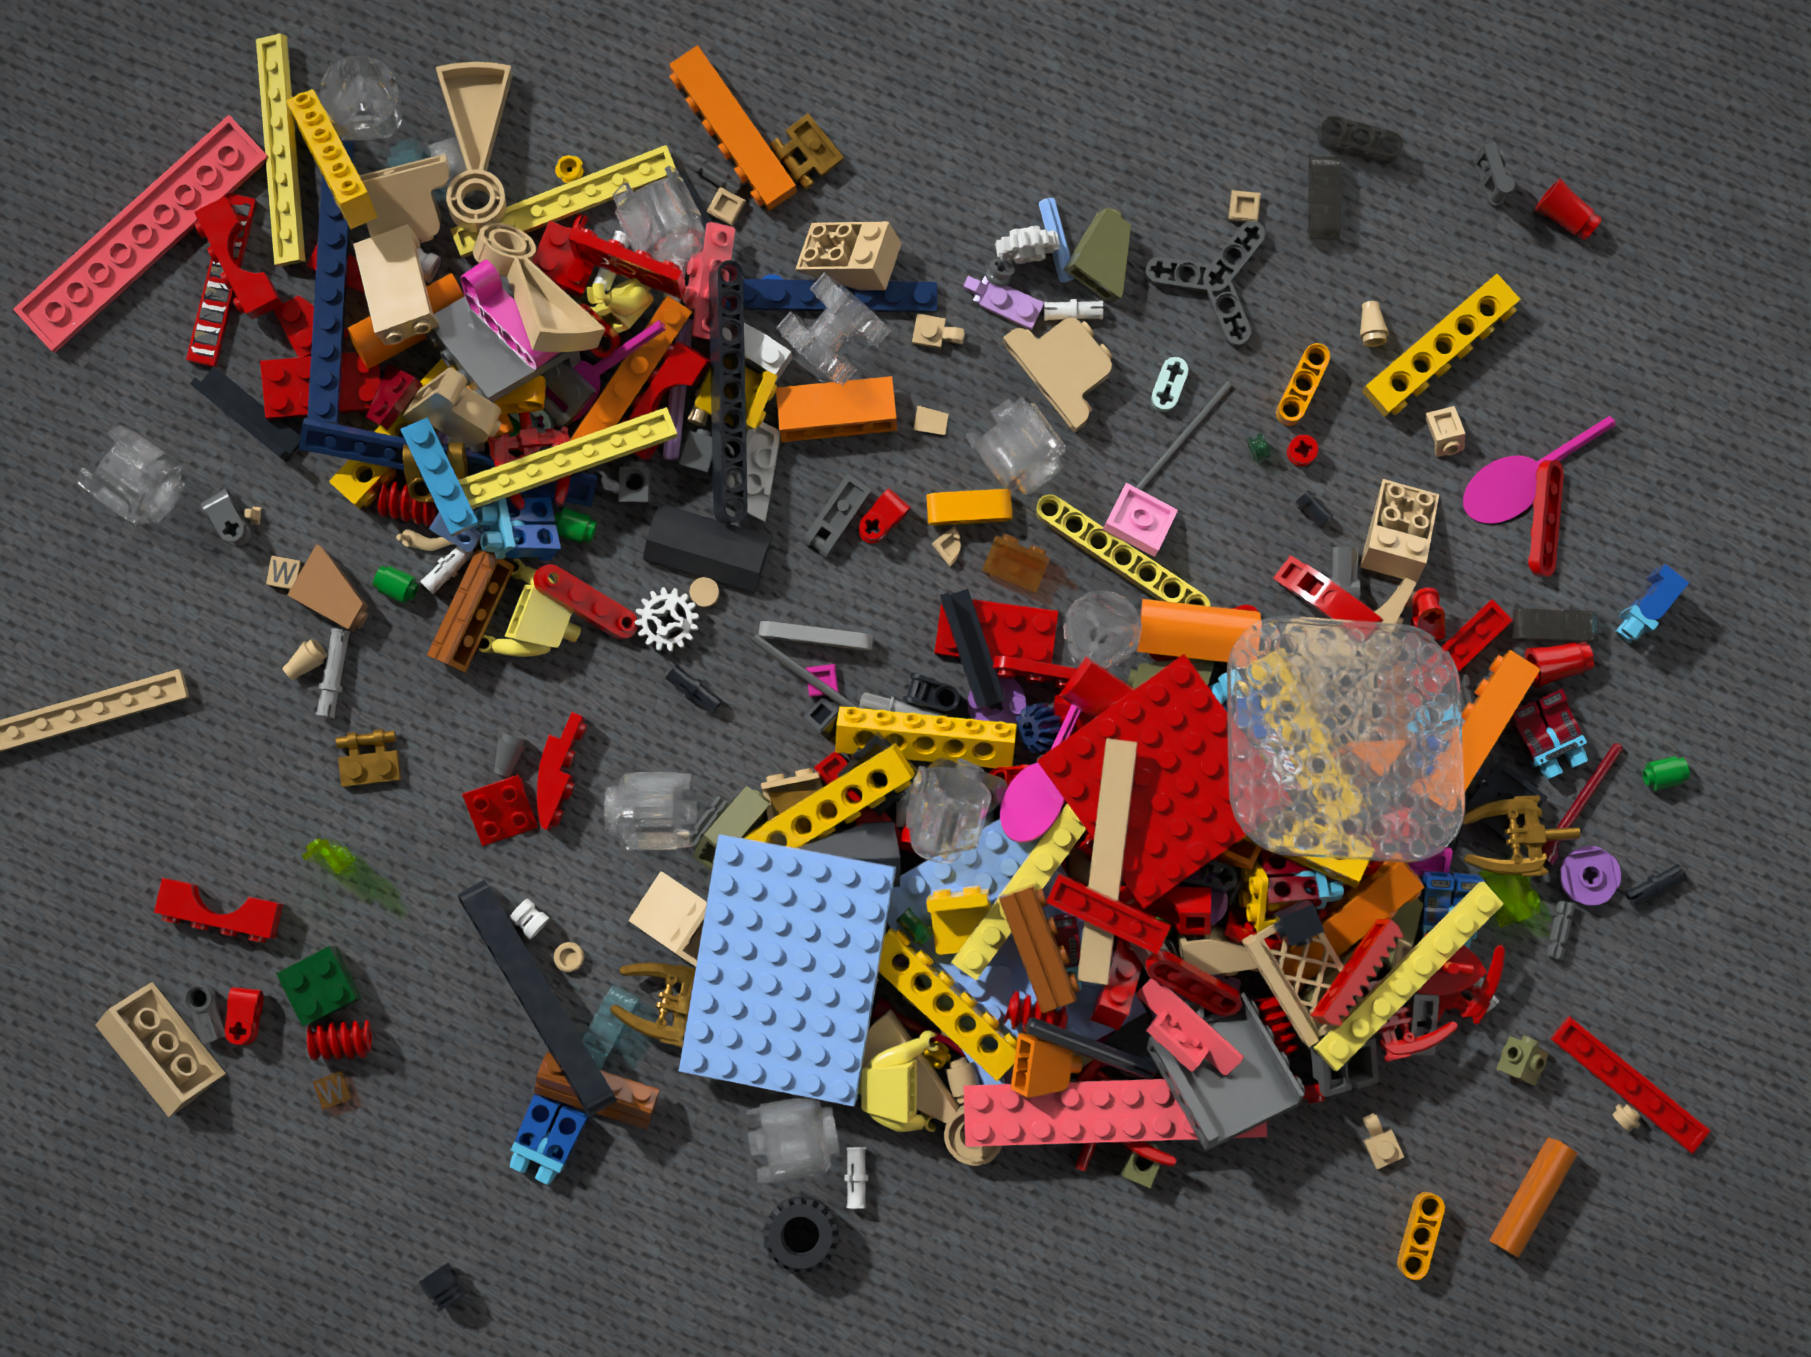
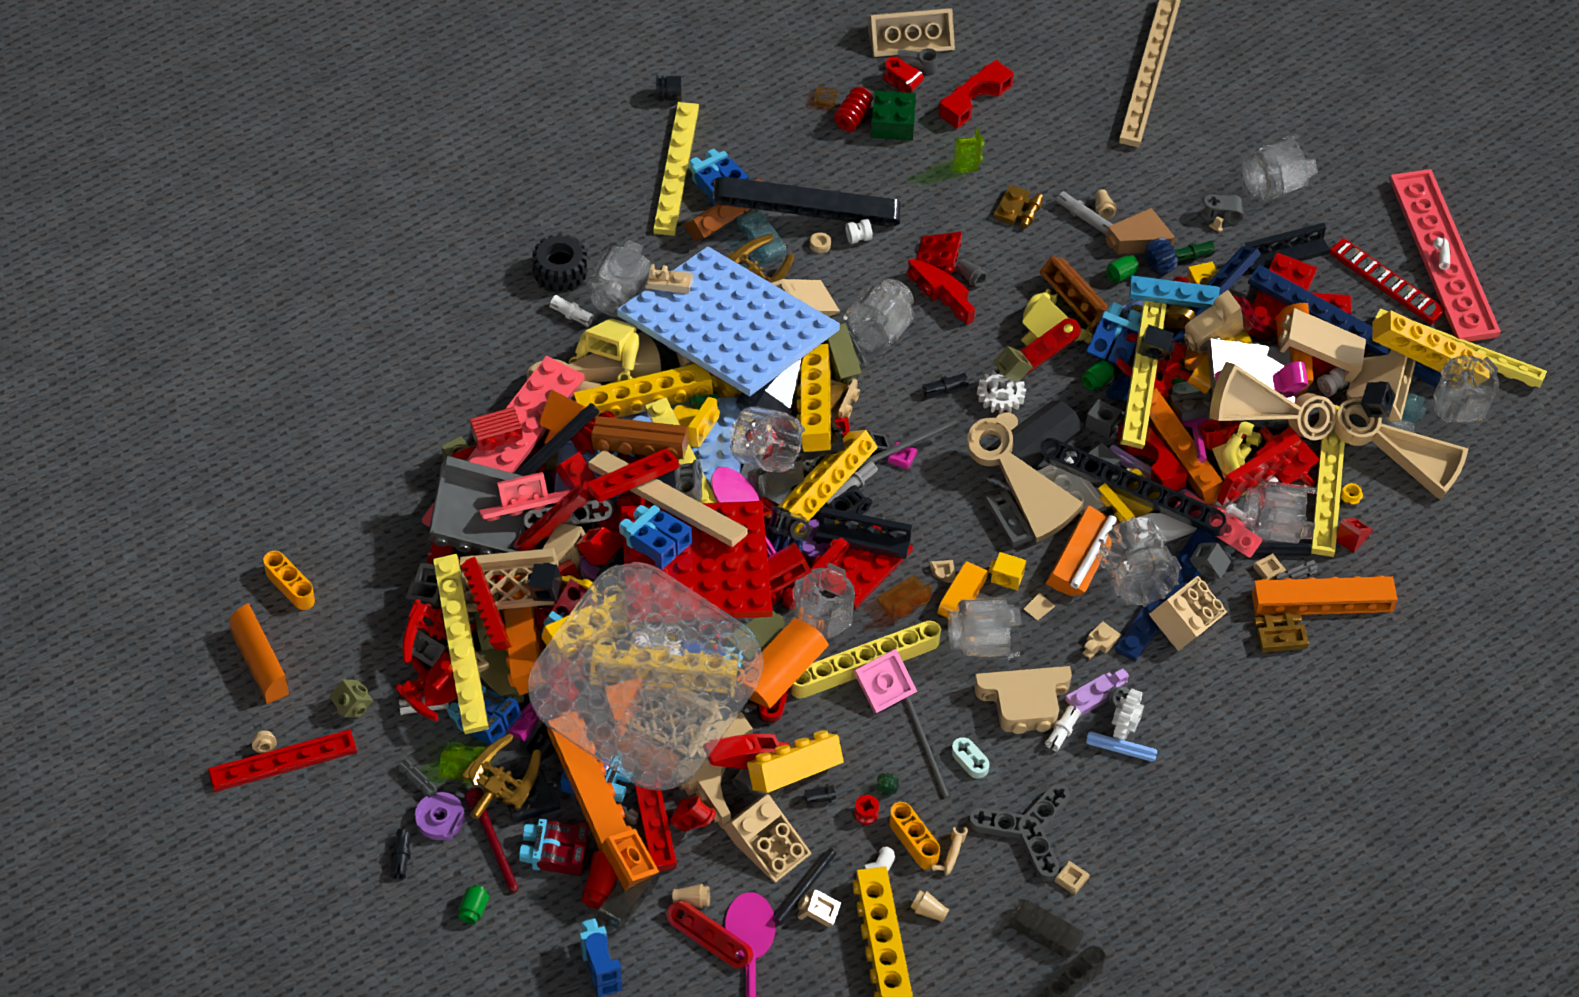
camera: 115 degrees right, 30 degrees down
(142, 232) = (1444, 252): none -> white arm
(222, 227) = (1420, 287): red arch -> none
(283, 572) = (1171, 220): tan tile -> none
(316, 519) = (1194, 251): none -> dark green pin
(353, 546) = (1161, 256): none -> dark blue gear
(446, 569) = (1112, 292): white pin -> none
(447, 179) = (1378, 399): none -> black brick
(529, 457) = (1156, 343): none -> black brick
(558, 1199) = (676, 169): none -> light yellow plate
(622, 138) = (1352, 533): none -> red slope
(637, 616) = (1012, 364): none -> olive brick
(766, 266) = (1210, 560): none -> dark grey brick
(776, 1071) = (669, 280): none -> tan plate
(802, 485) = (1041, 501): none -> tan piece
(815, 635) = (934, 464): light grey beam -> none
(837, 392) = (1091, 555): none -> white piece
(886, 513) = (989, 538): red piece -> none
(912, 475) = (1007, 570): none -> yellow brick
(1022, 727) = (786, 523): none -> black piece
(1060, 858) = (689, 478): none -> dark grey piece
(1102, 255) = (1092, 761): olive slope -> none
(1113, 1126) = (496, 429): none -> red brick
(1175, 845) = (656, 534): none -> blue hips
(1293, 335) = (957, 839): none -> tan piece
(1310, 544) = (795, 761): none -> yellow brick
(1351, 399) = (885, 858): none -> white arm
(1382, 1144) = (364, 594): tan plate -> none
(1427, 460) = (804, 886): none -> black bar
(1513, 562) = (696, 895): none -> tan cone
(1537, 636) = (629, 858): none -> orange slope

